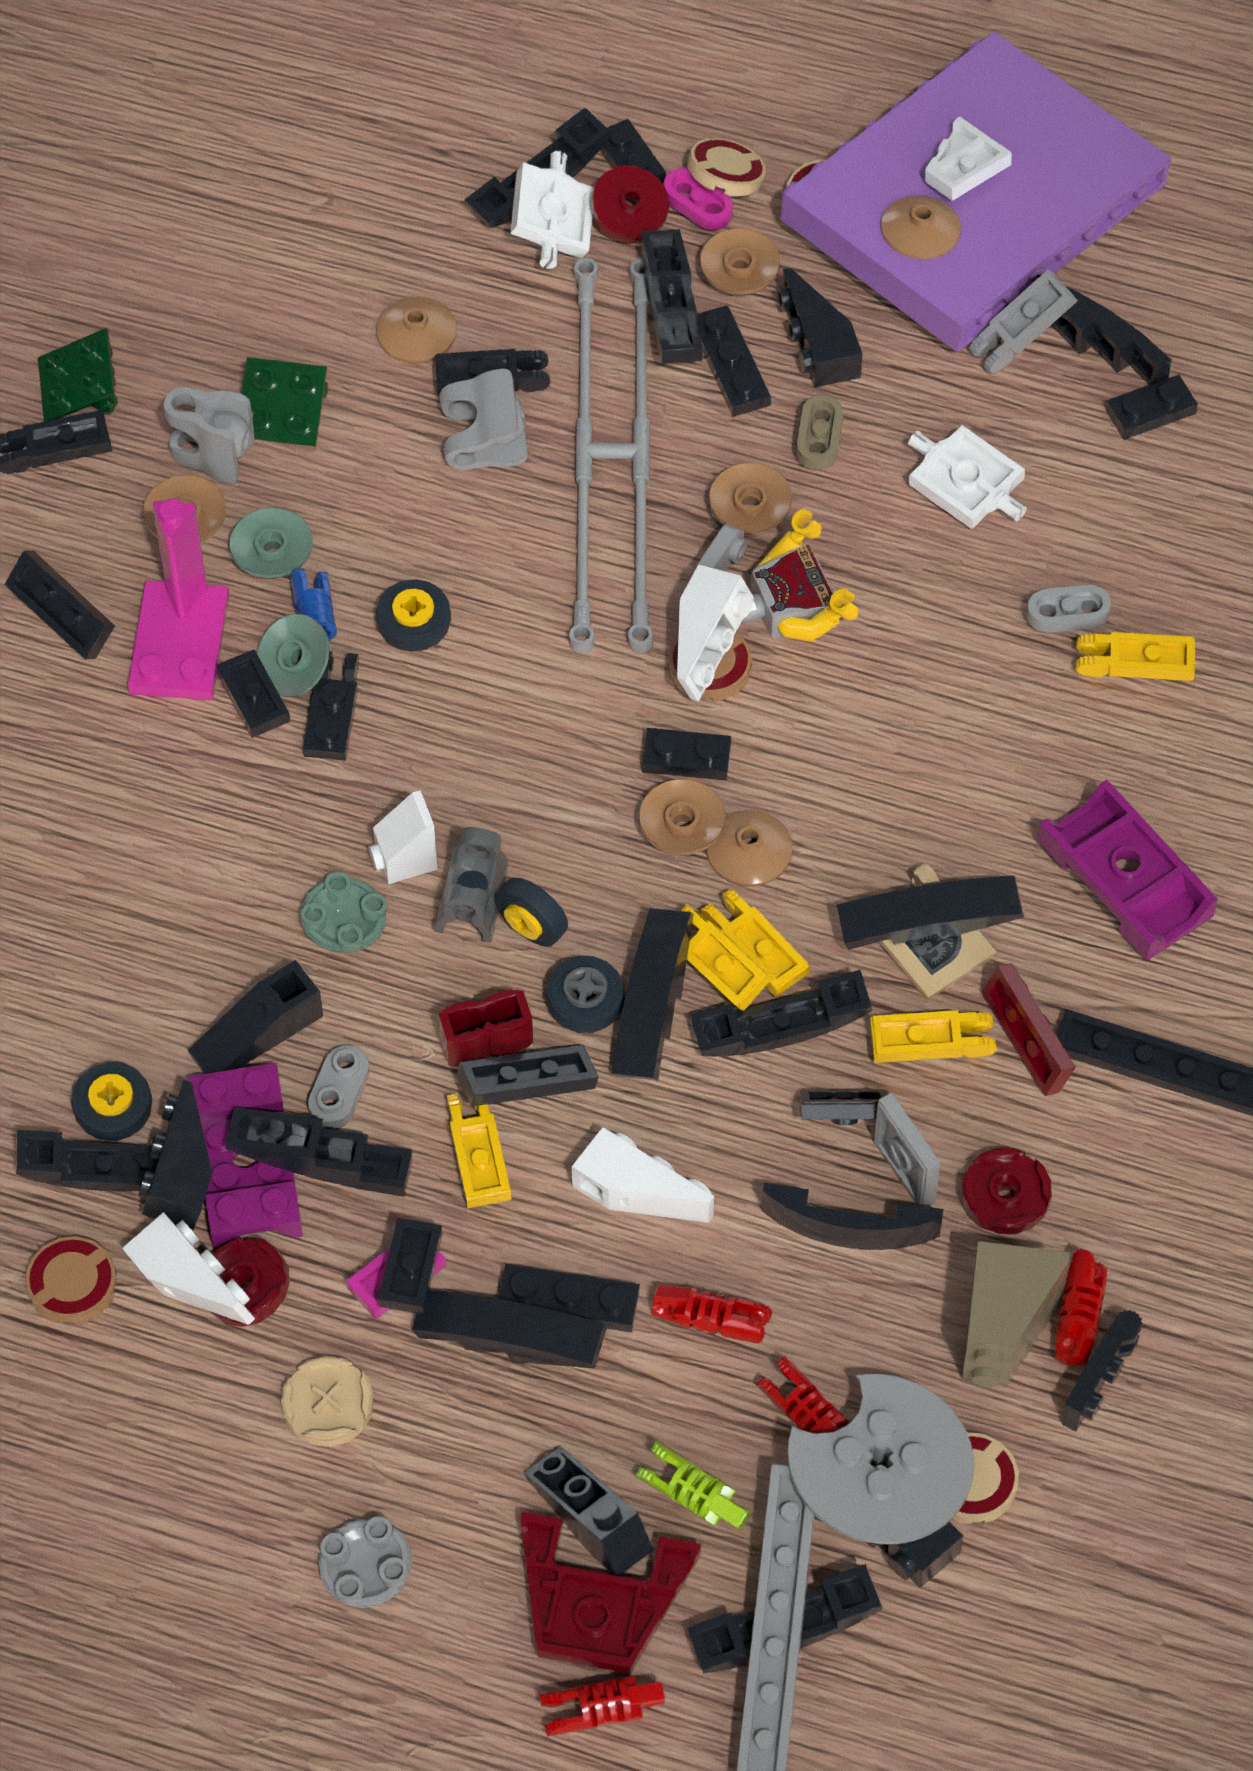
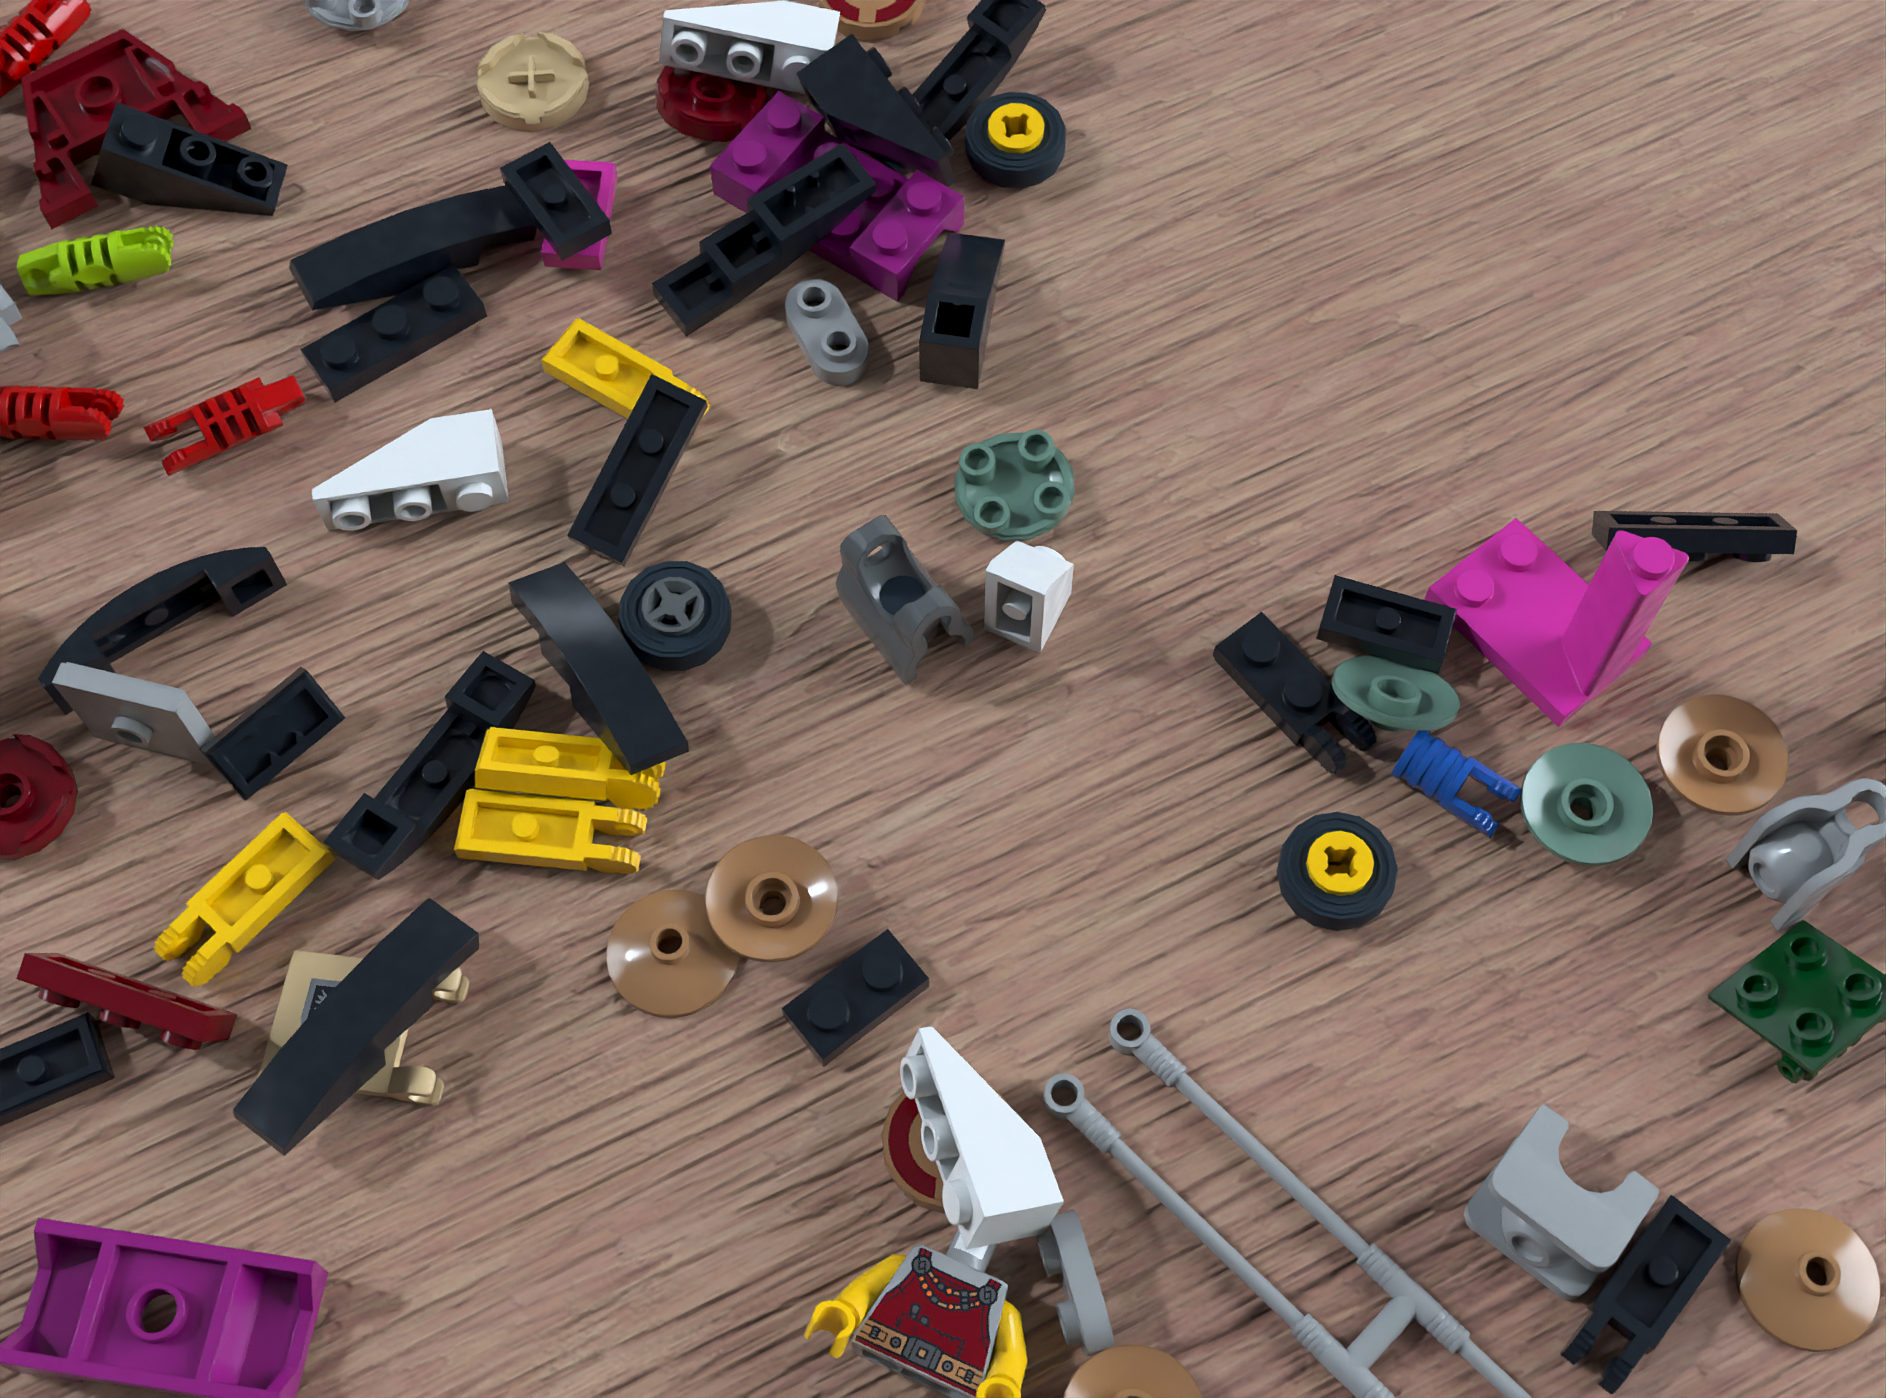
camera: 135 degrees right, 5 degrees up
(478, 1029) = (728, 475): dark red brick -> none
(531, 911) = (811, 628): black wheel -> none

